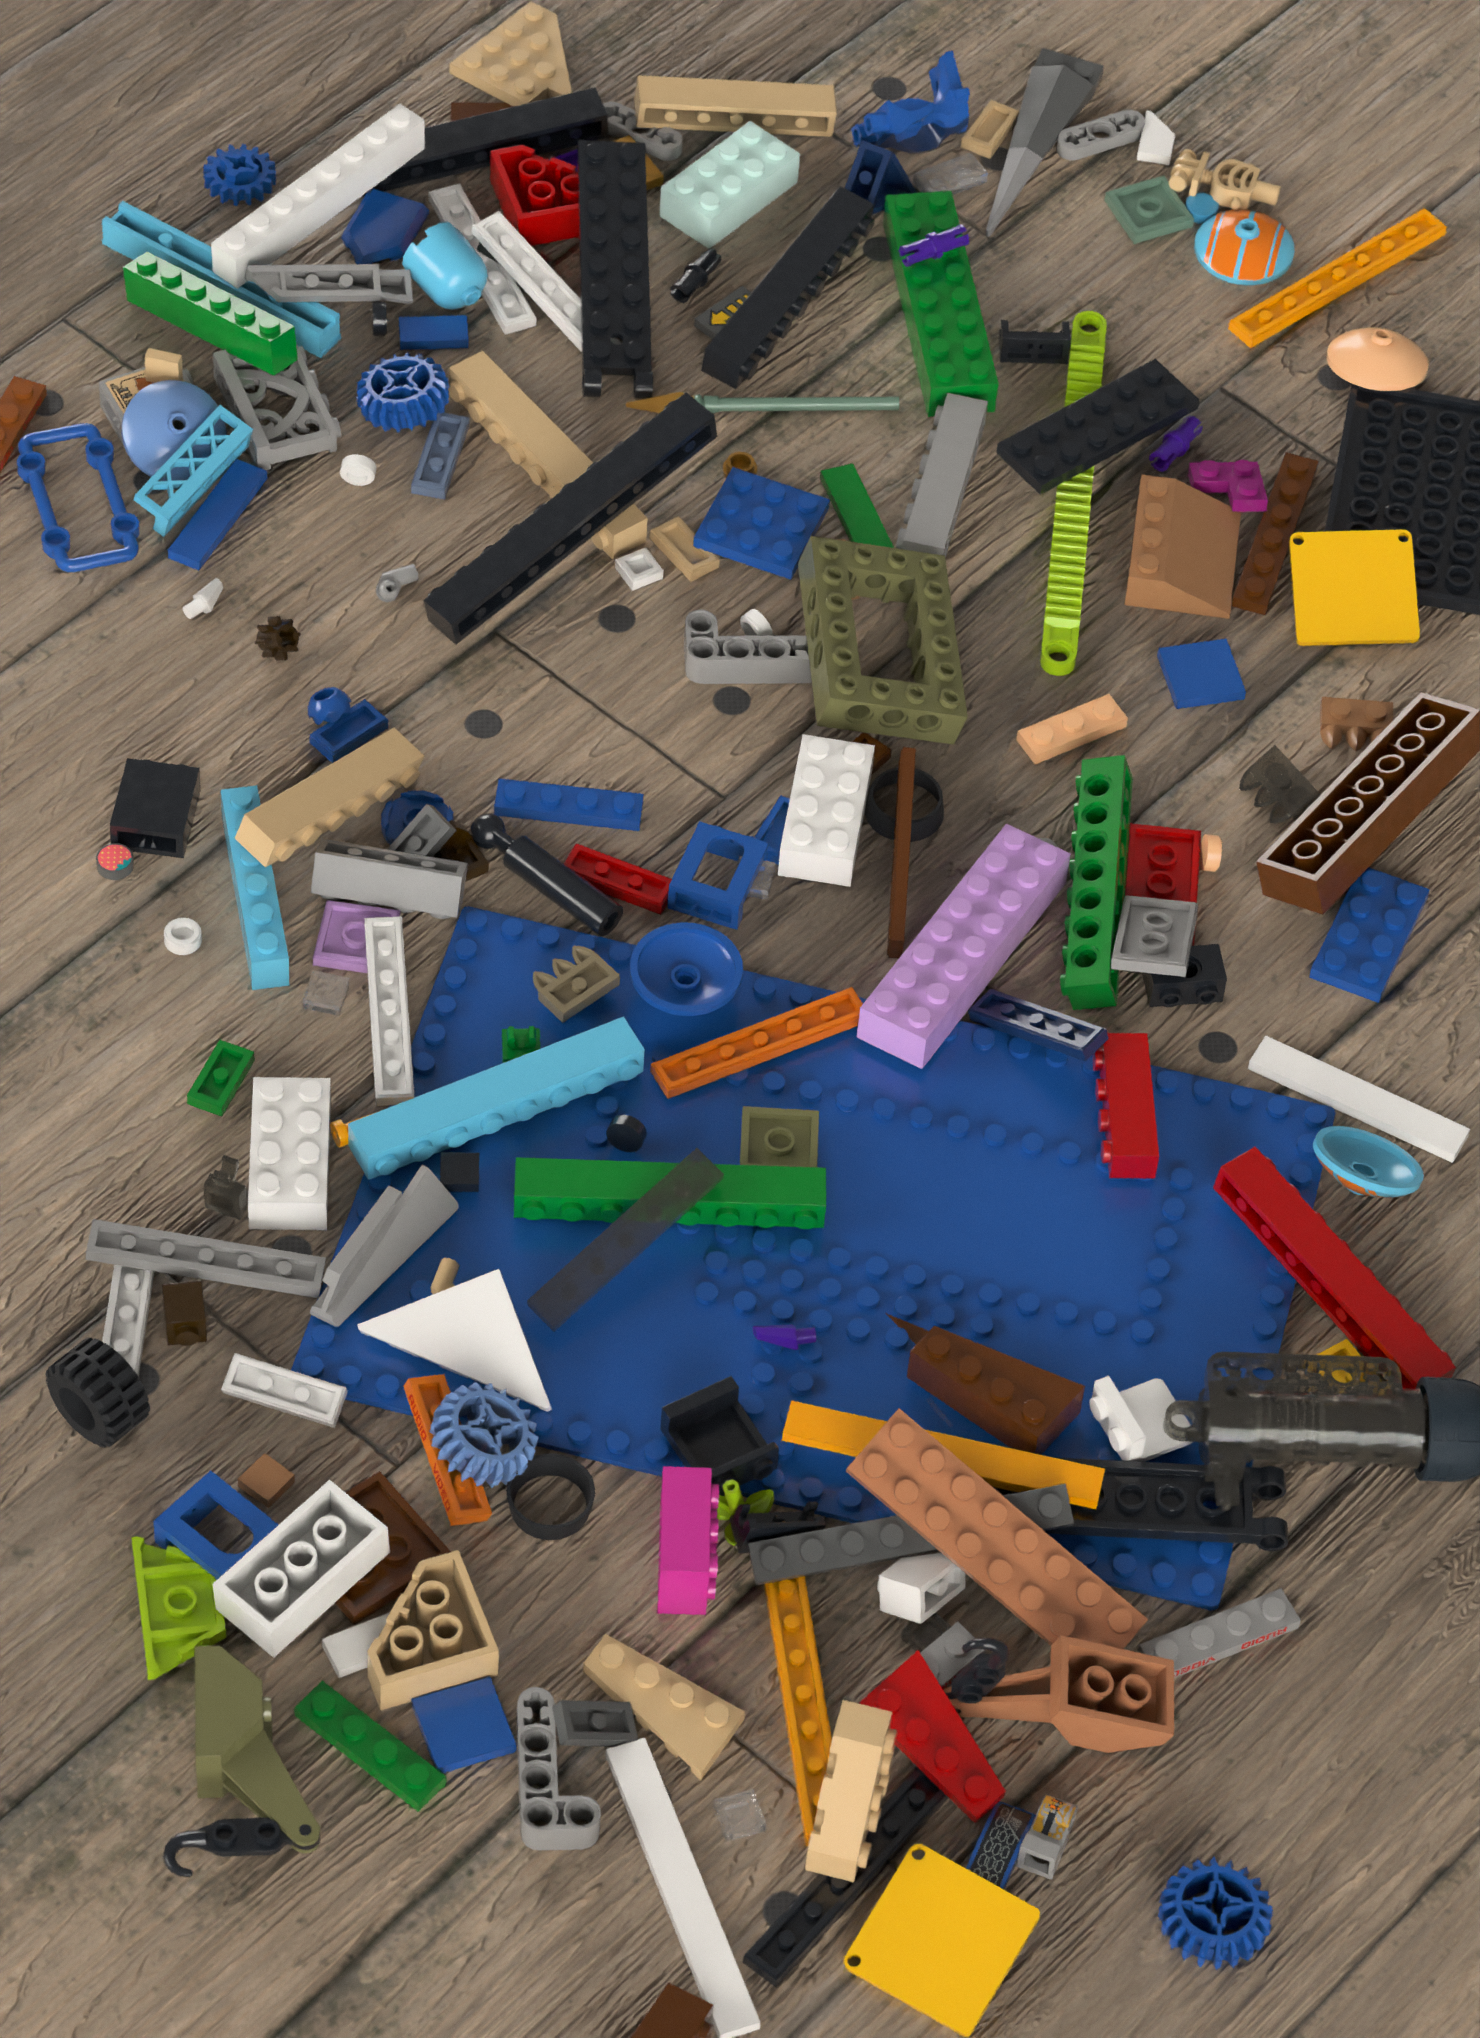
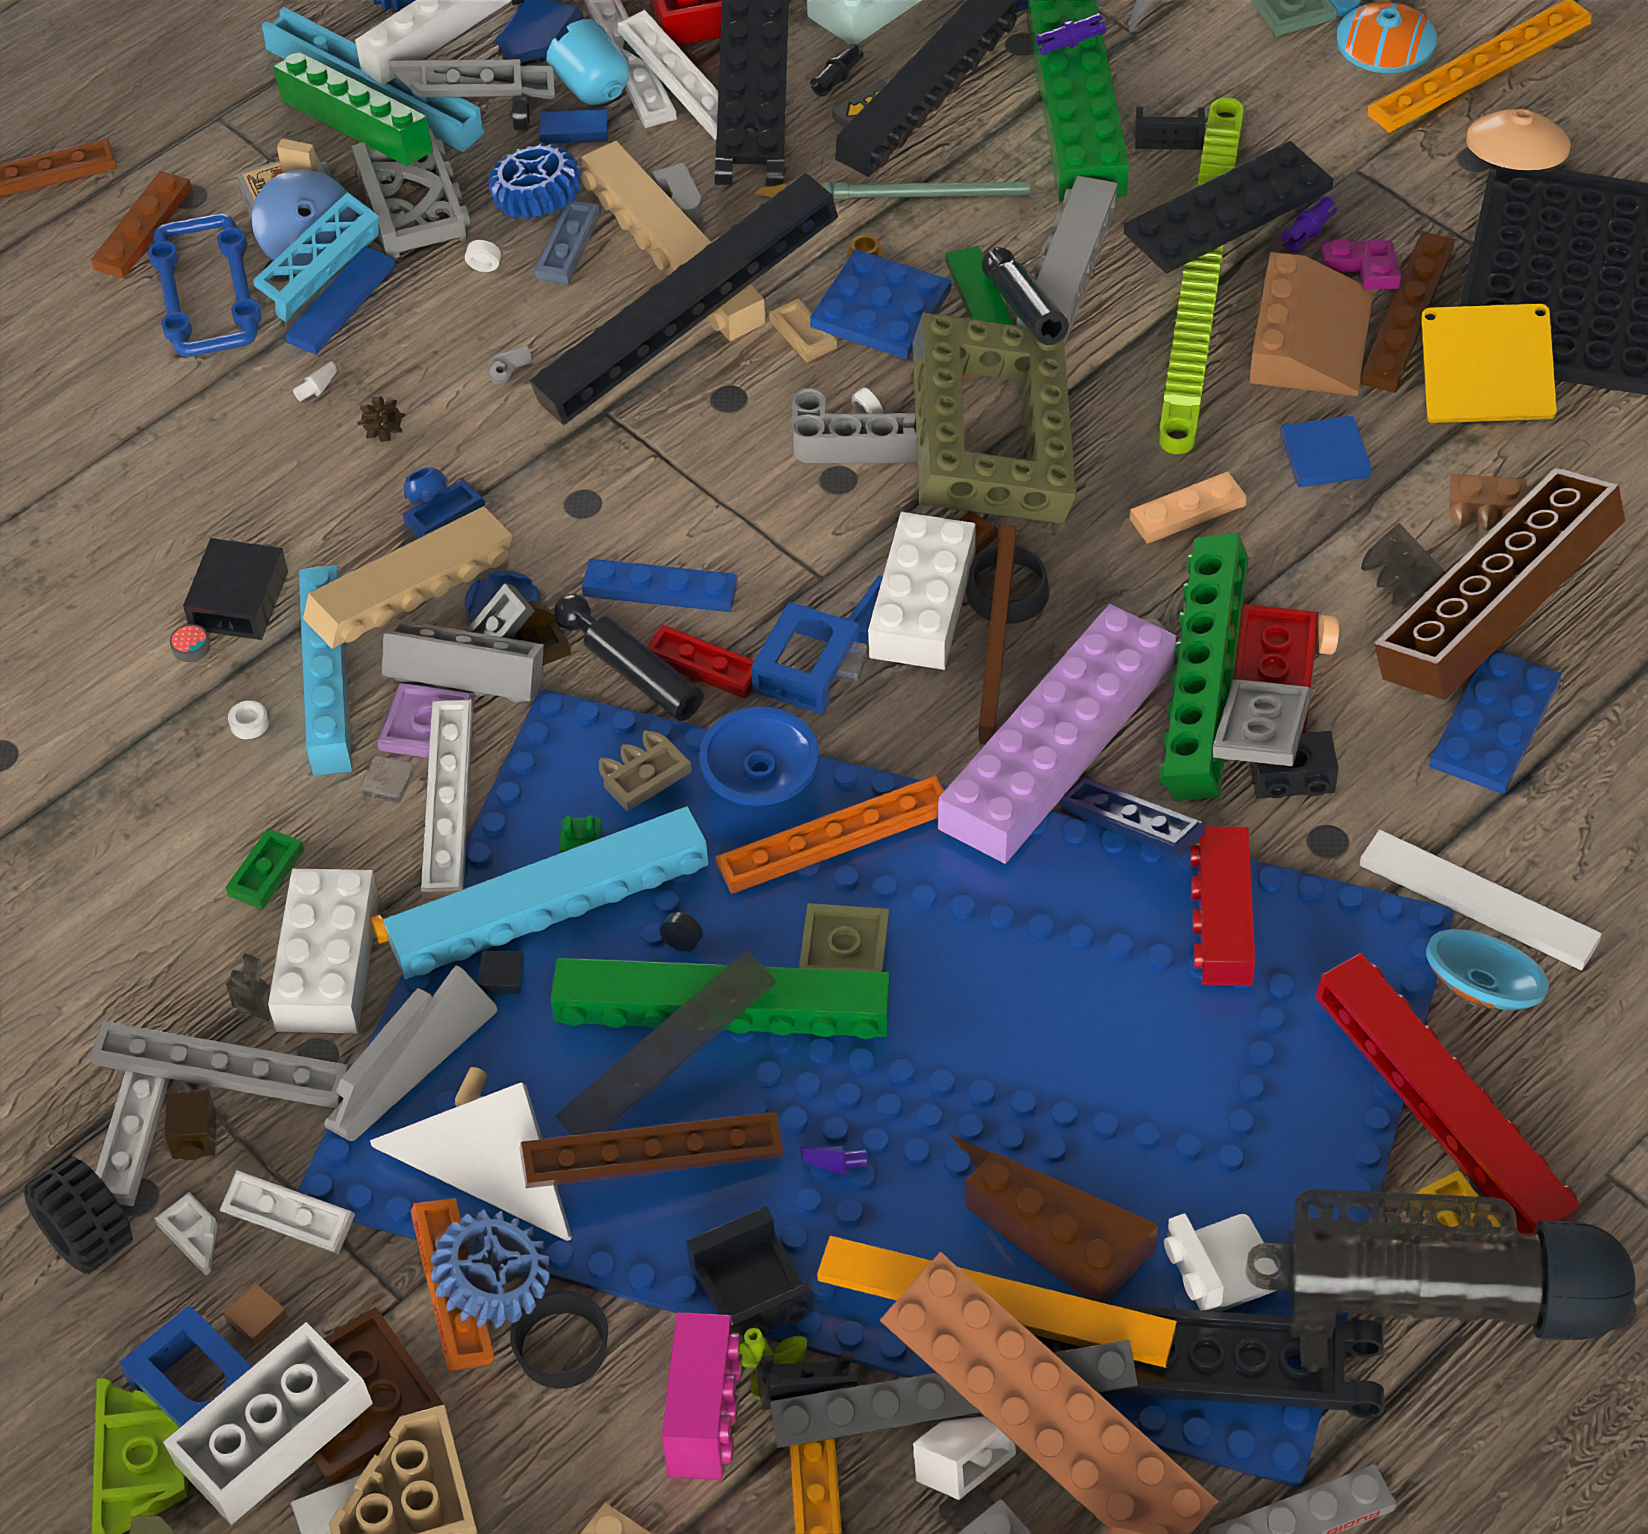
camera: 10 degrees right, 0 degrees up
(195, 1407) = (191, 1230): none -> white tile
(552, 401) = (681, 189): none -> light grey leg
(620, 1328) = (650, 1149): none -> reddish brown plate
(639, 569) = (755, 350): white tile -> none
(906, 518) = (1025, 296): none -> black piece

